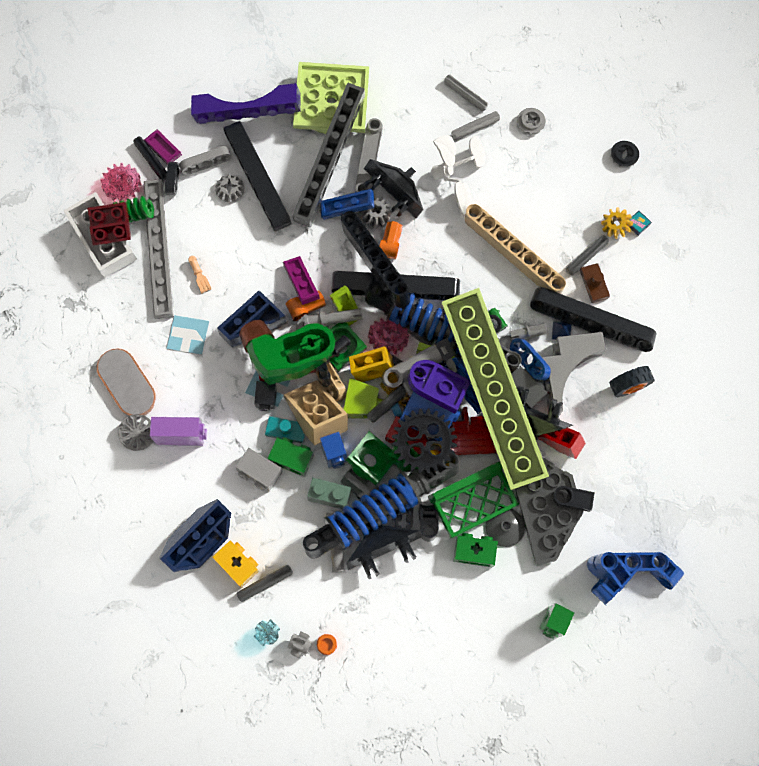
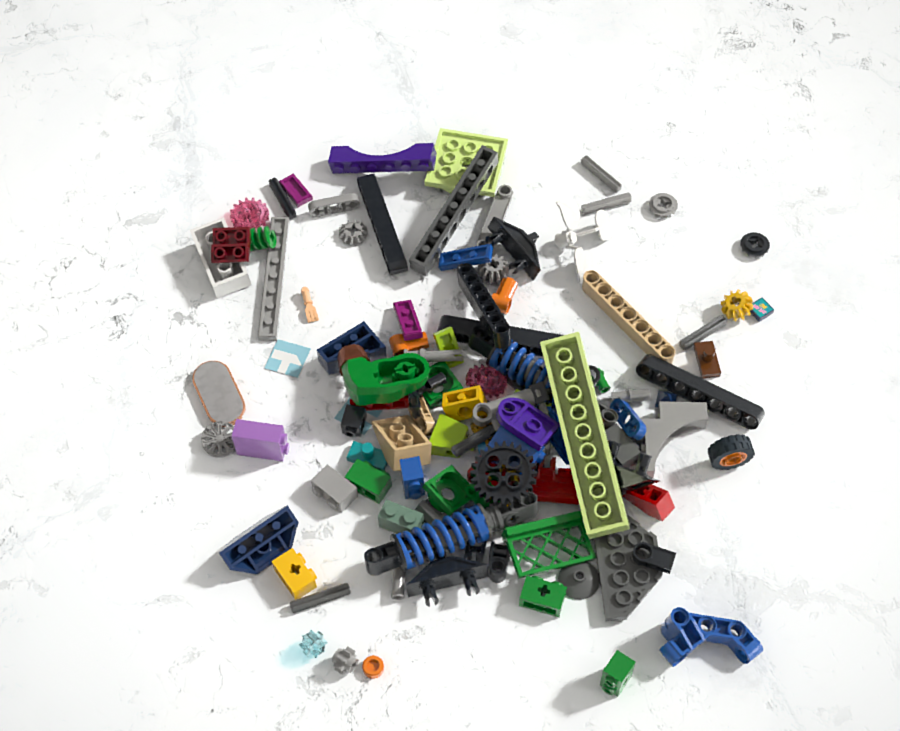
camera: 15 degrees right, 15 degrees down
(172, 178) = (299, 217): black beam -> none

